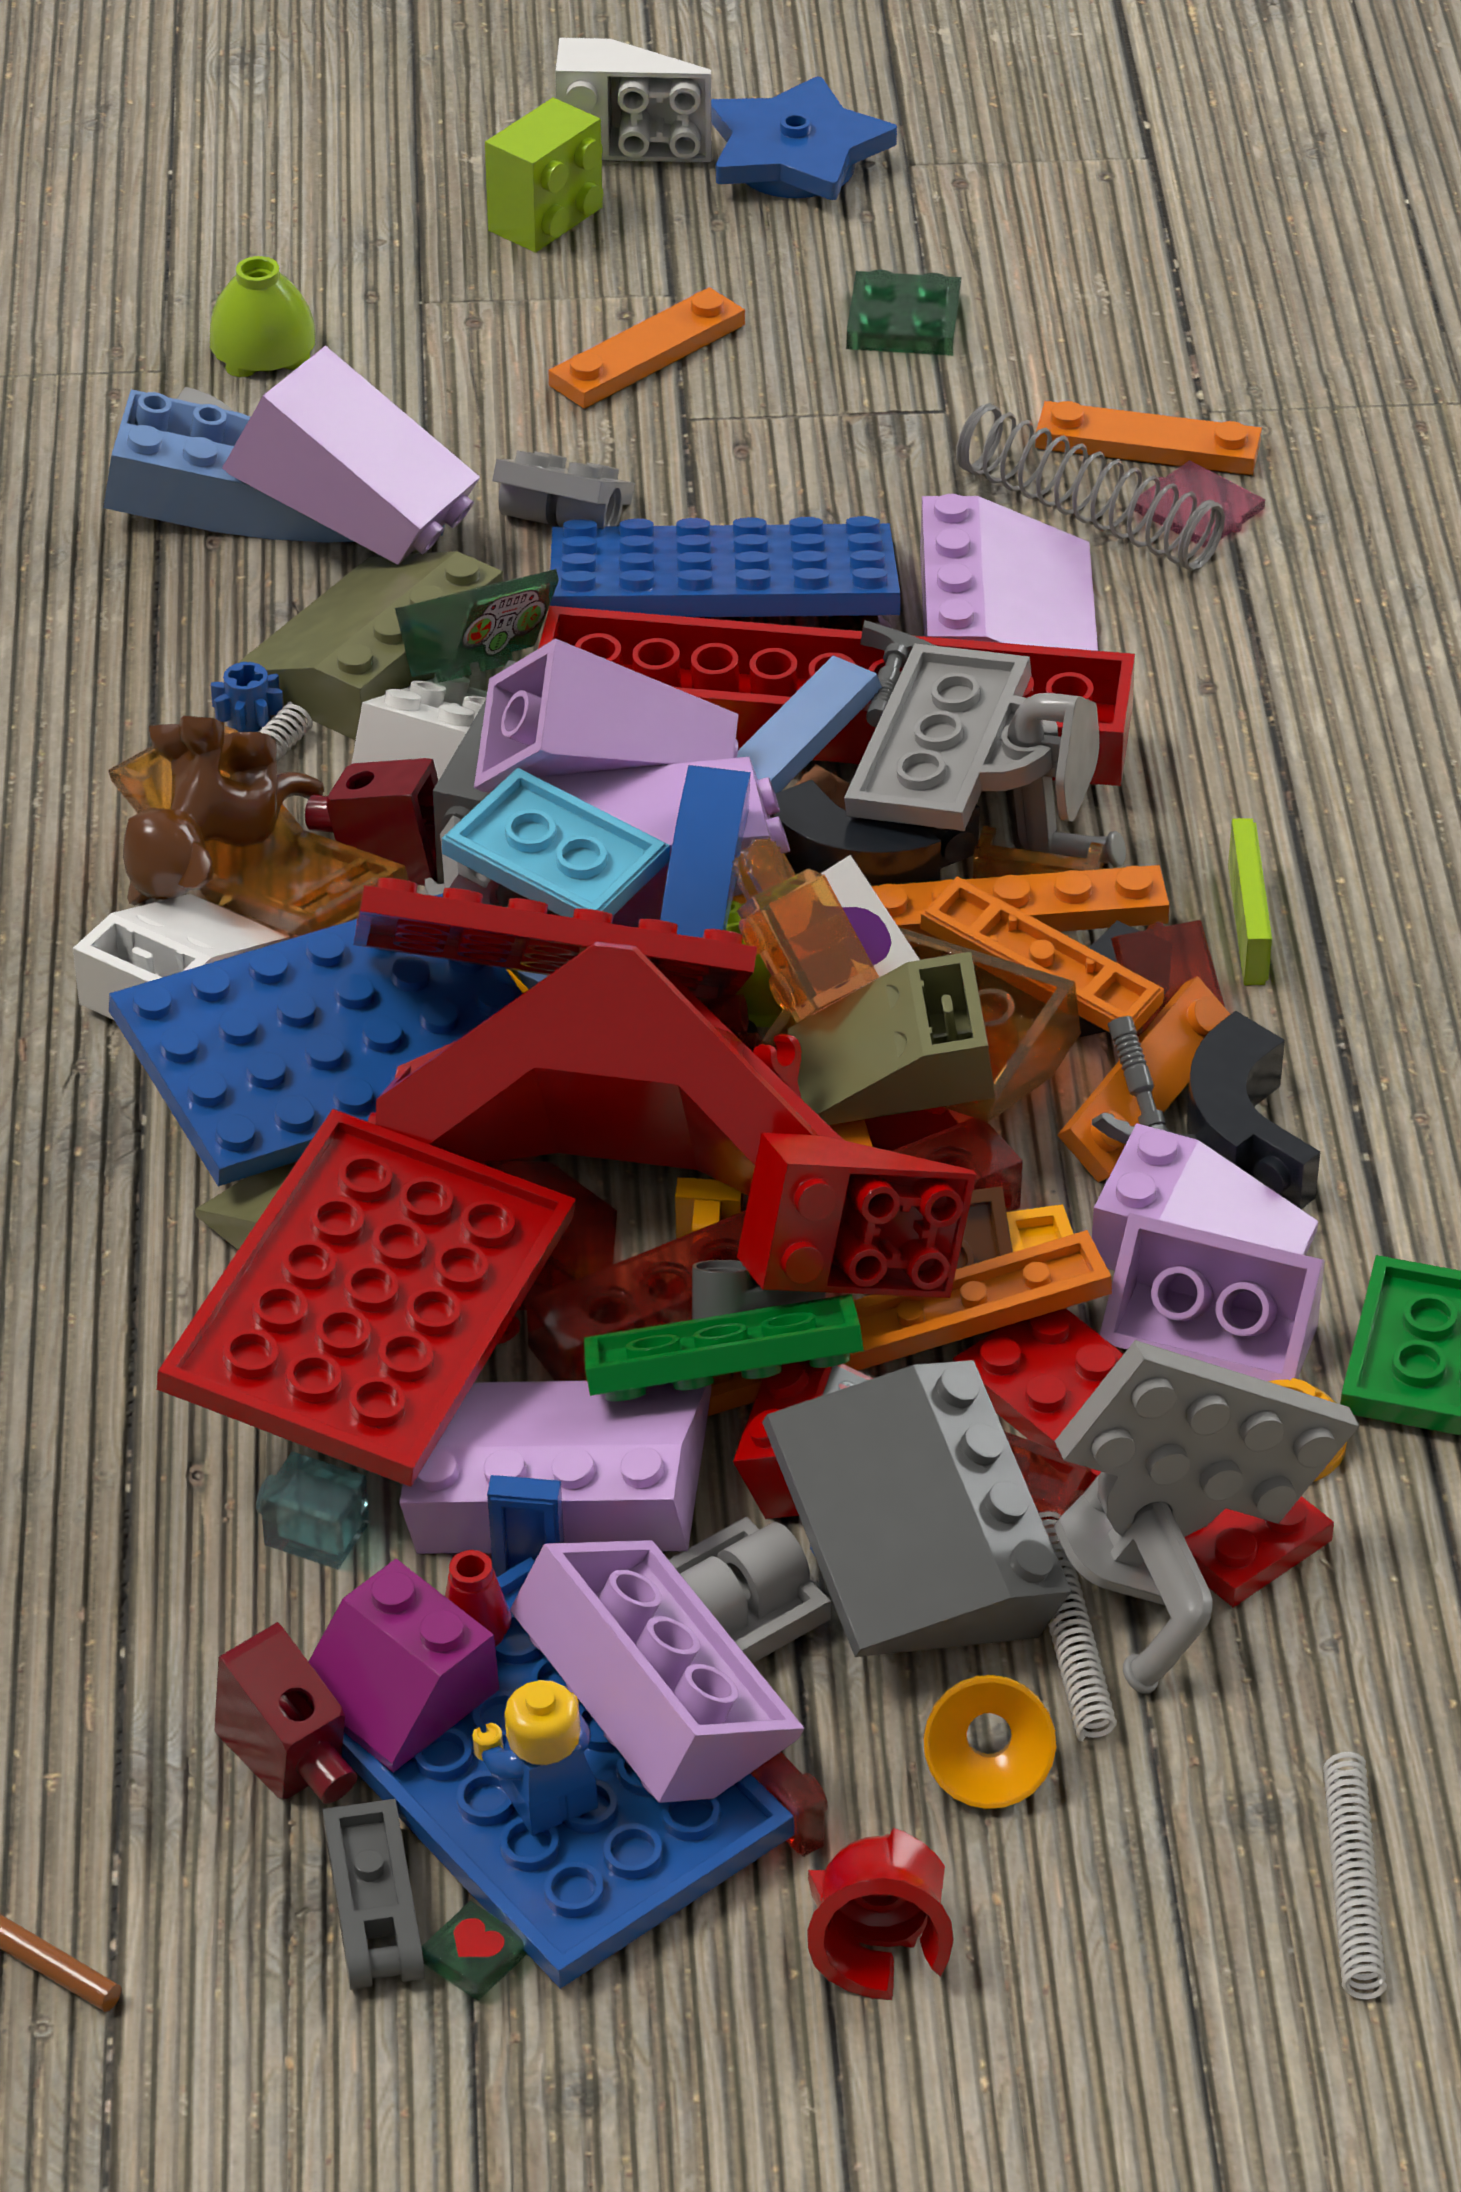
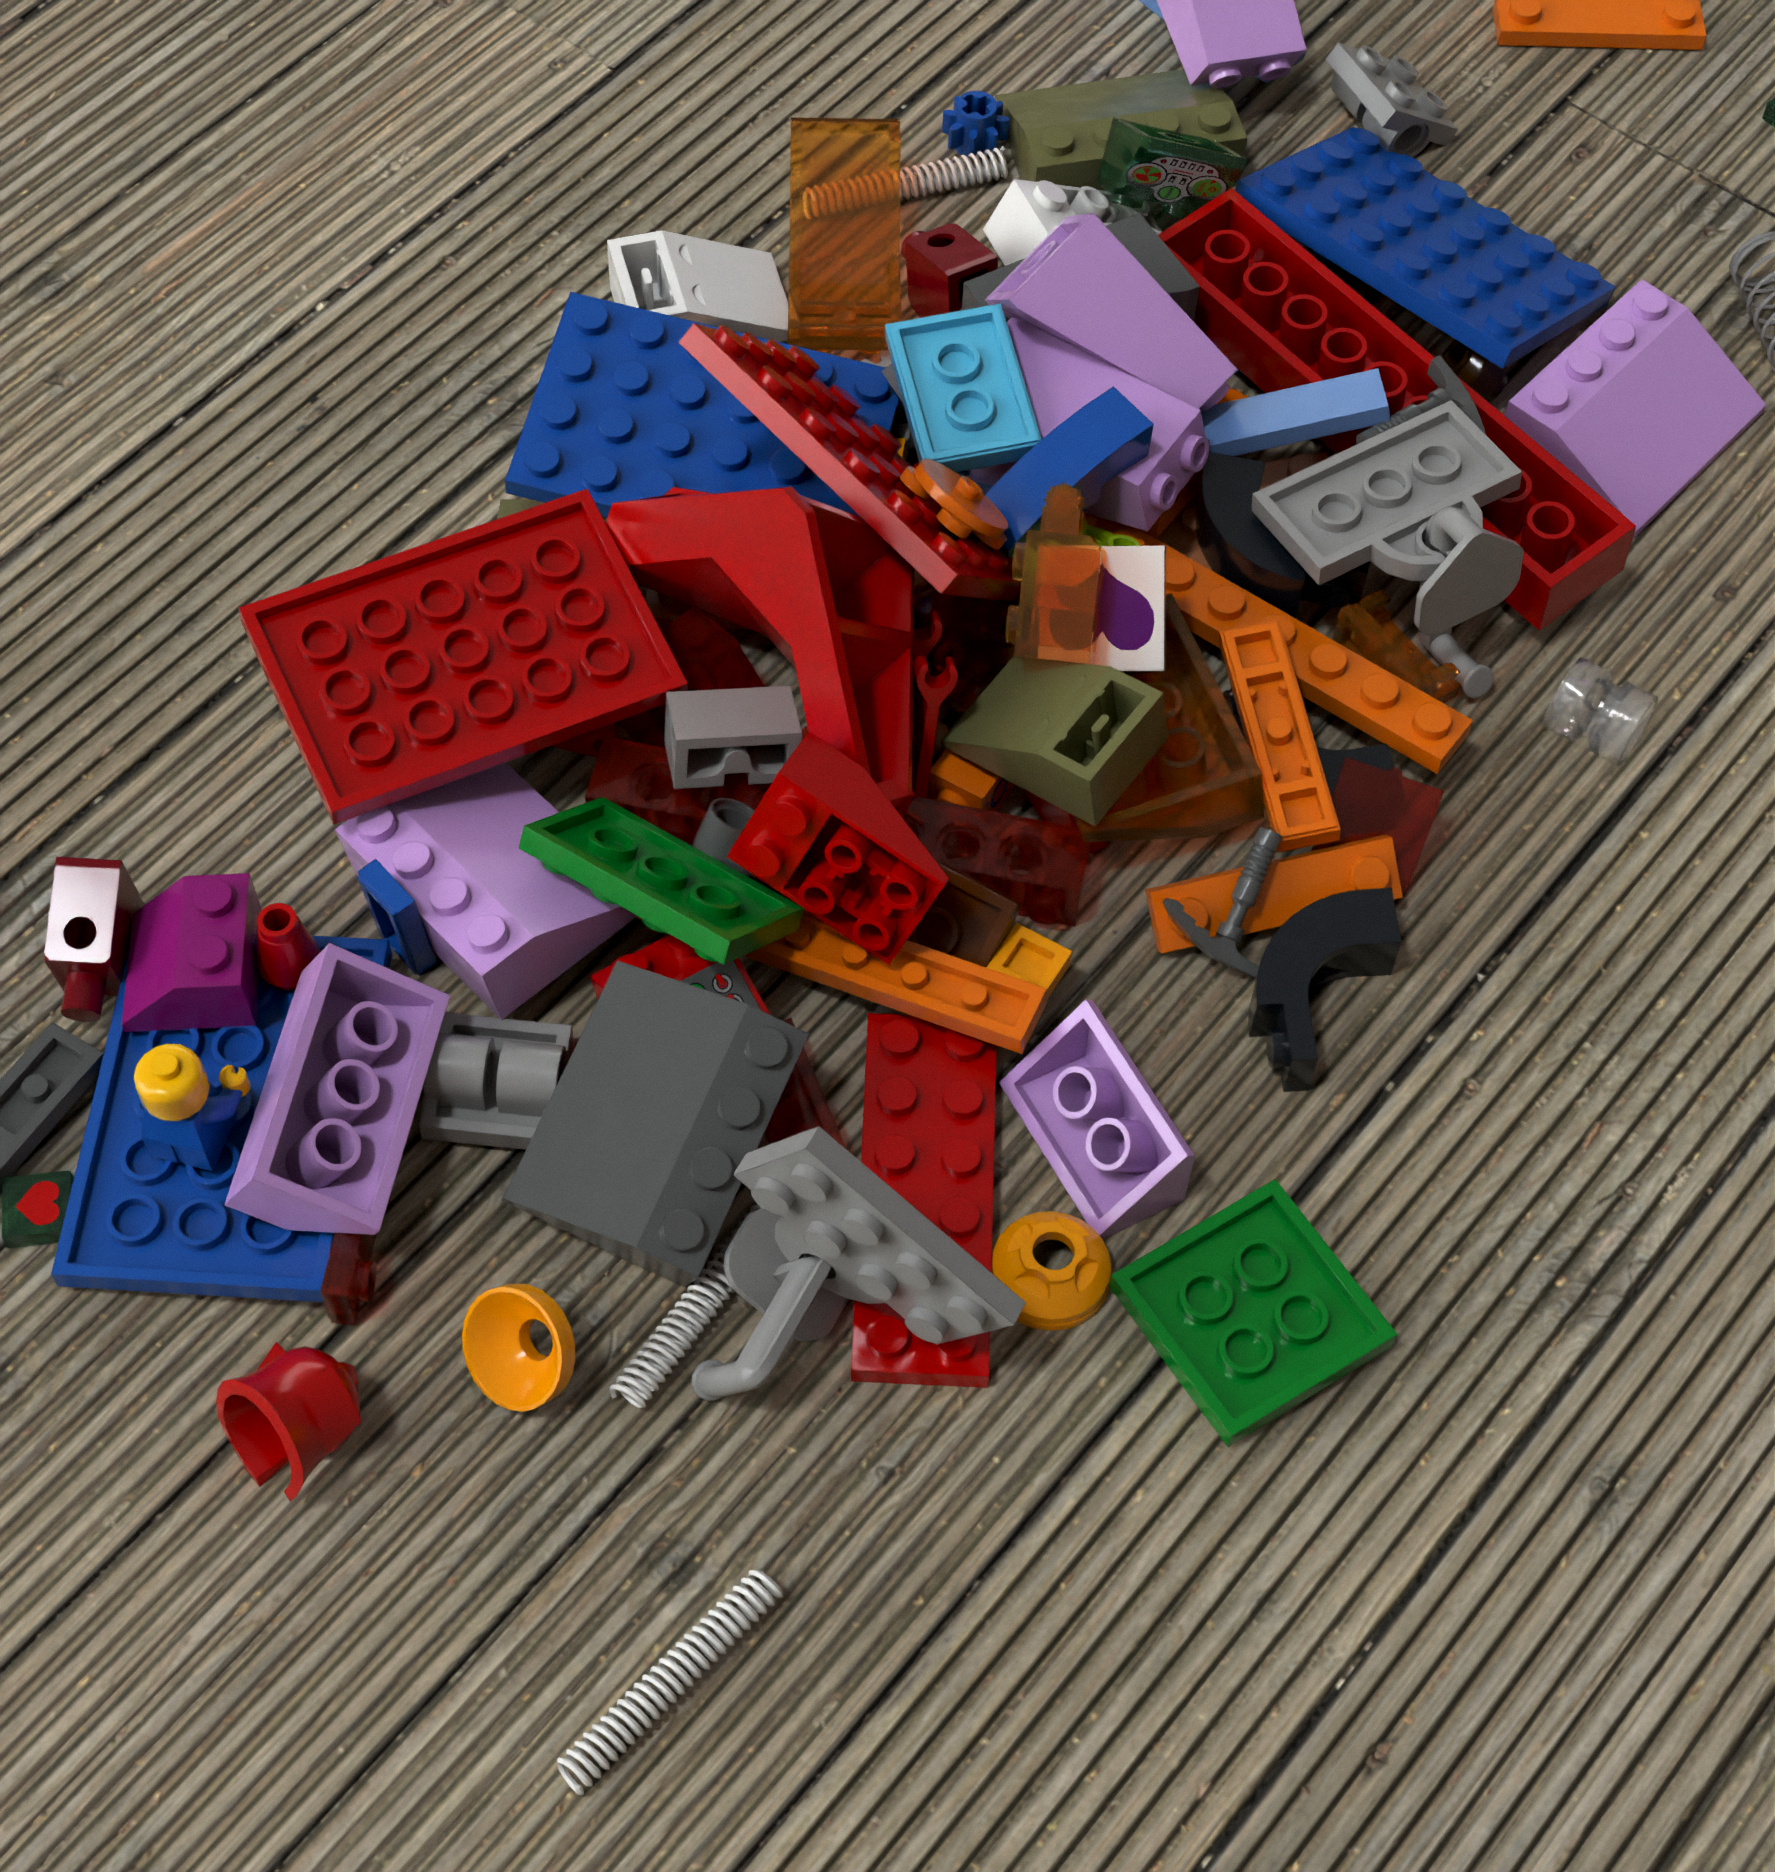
camera: 40 degrees right, 15 degrees up
(166, 846) = (760, 202): reddish brown animal -> none
(313, 1509) = (297, 795): clear light blue brick -> none
(640, 1217) = (729, 734): none -> light grey brick
(665, 907) = (962, 502): none -> orange piece
(1196, 1188) = (1184, 1037): lavender slope -> none
(1212, 802) = (1600, 711): none -> clear wheel
(1249, 901) = (1529, 801): lime tile -> none

